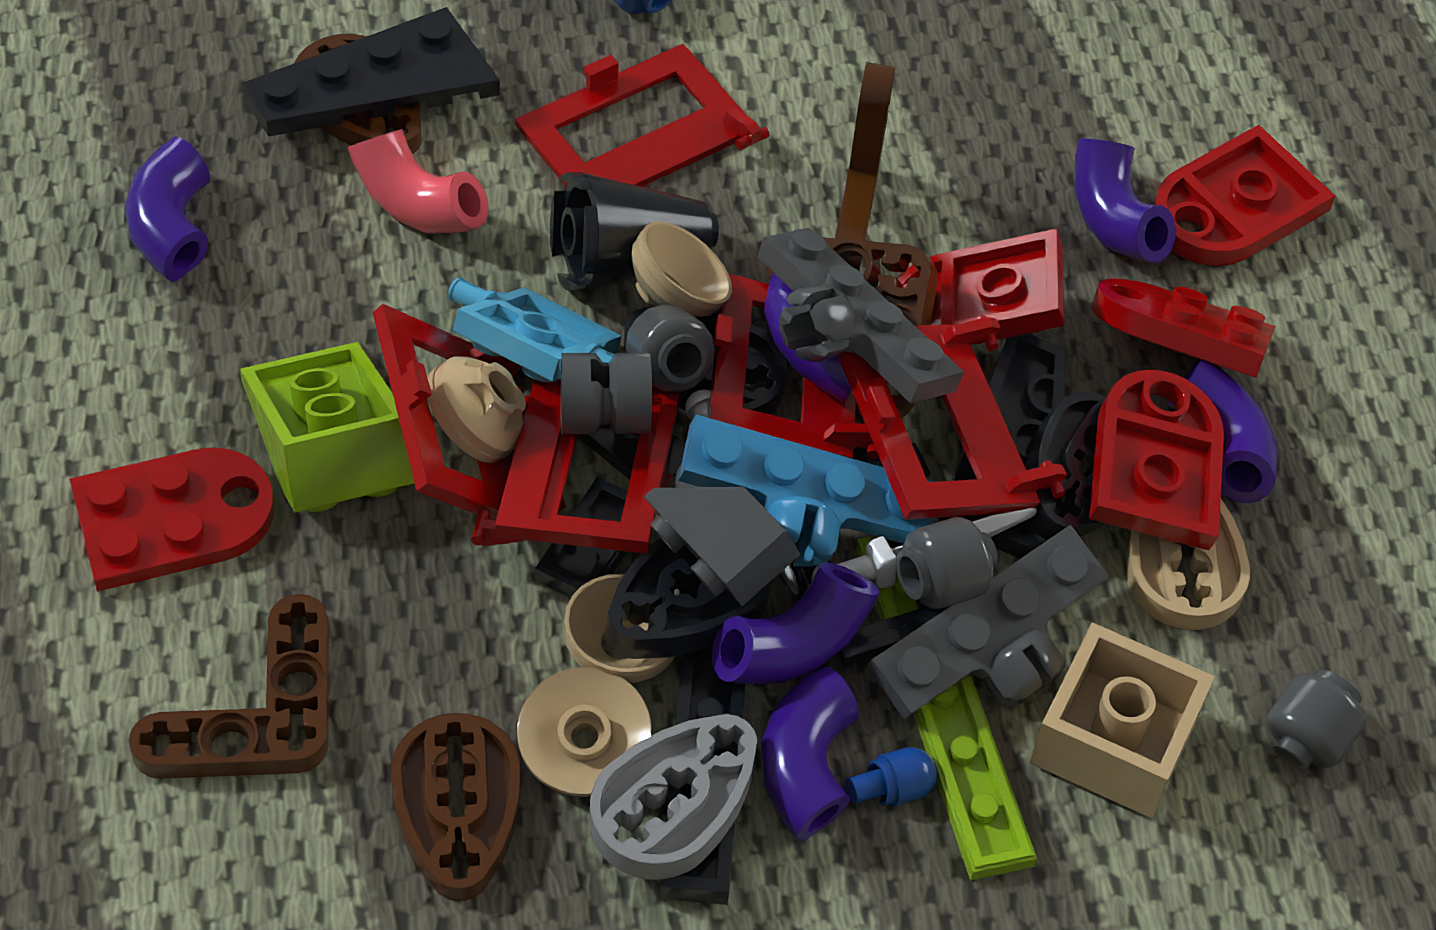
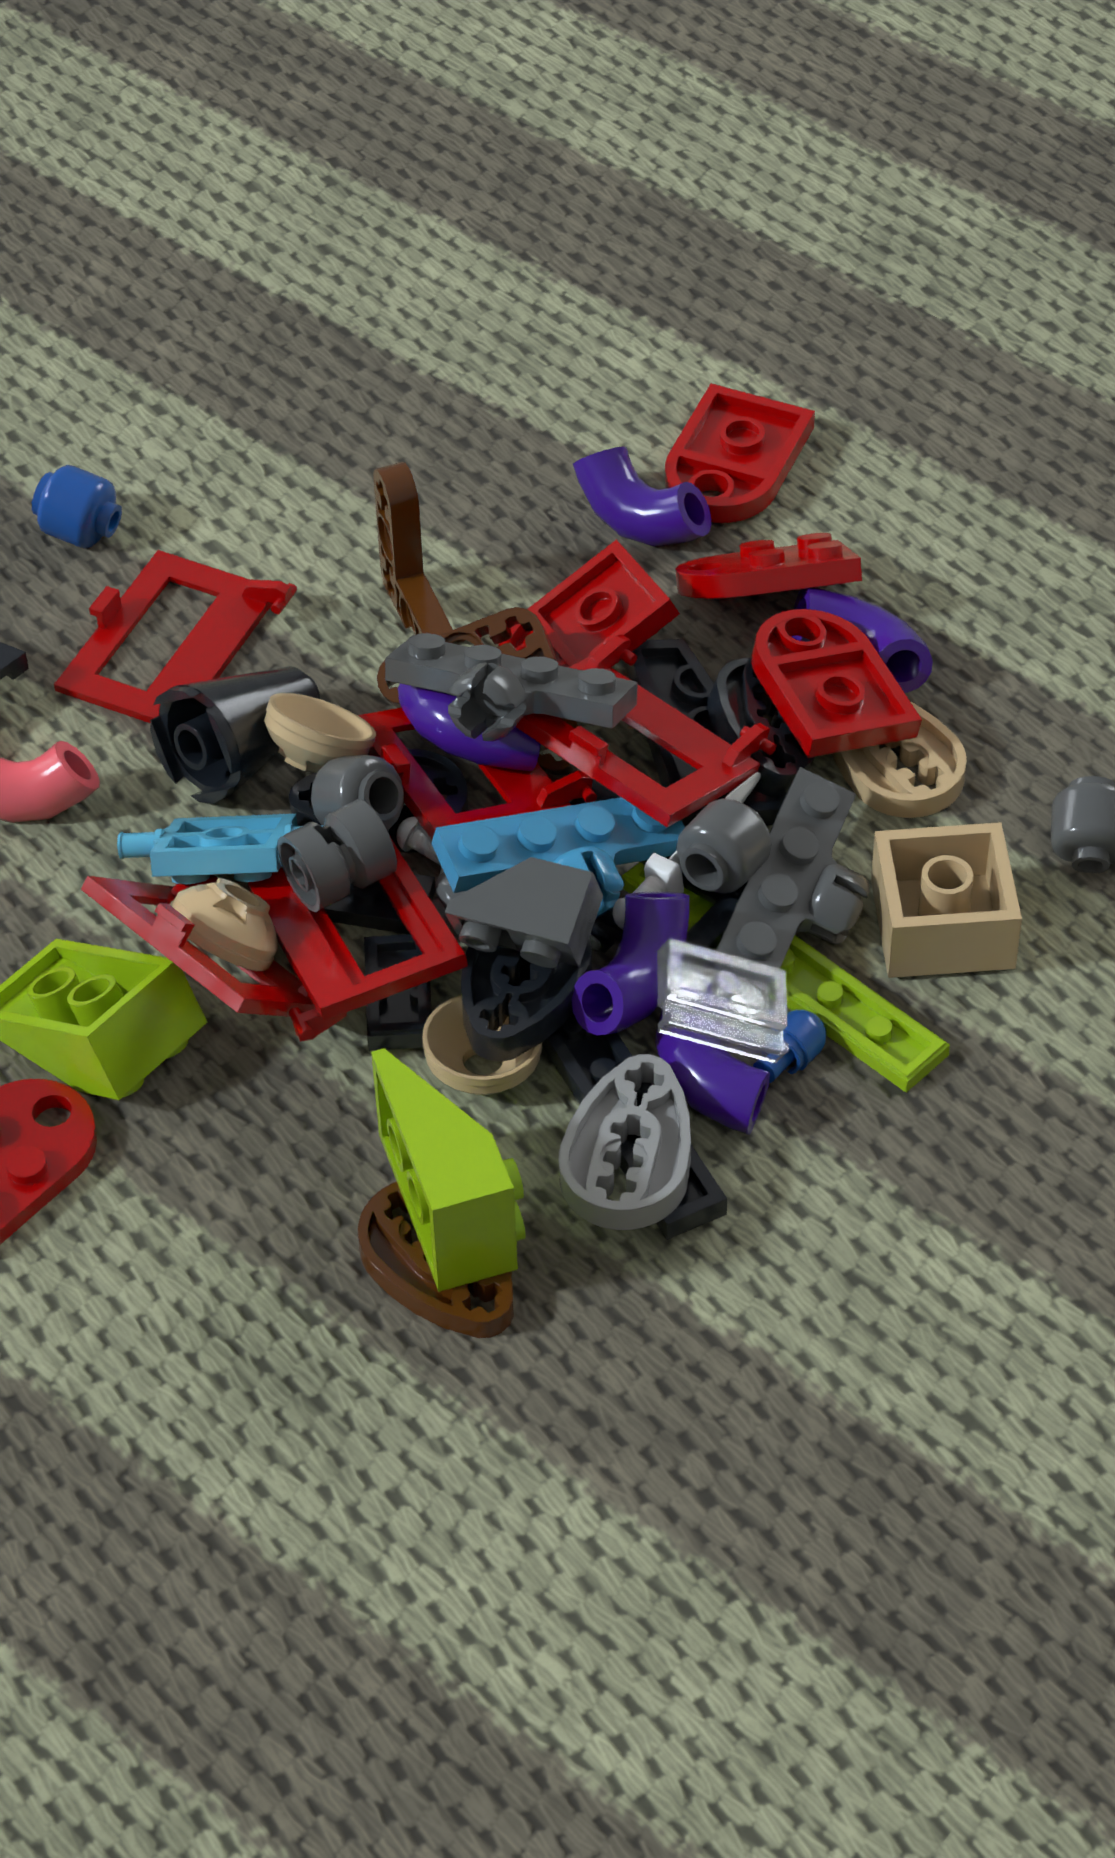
camera: 25 degrees left, 5 degrees down
(265, 728) = (224, 1288): reddish brown beam -> none
(476, 759) = (449, 1178): none -> lime slope
(574, 703) = (527, 1118): tan dish -> none
(842, 708) = (722, 1000): none -> clear plate

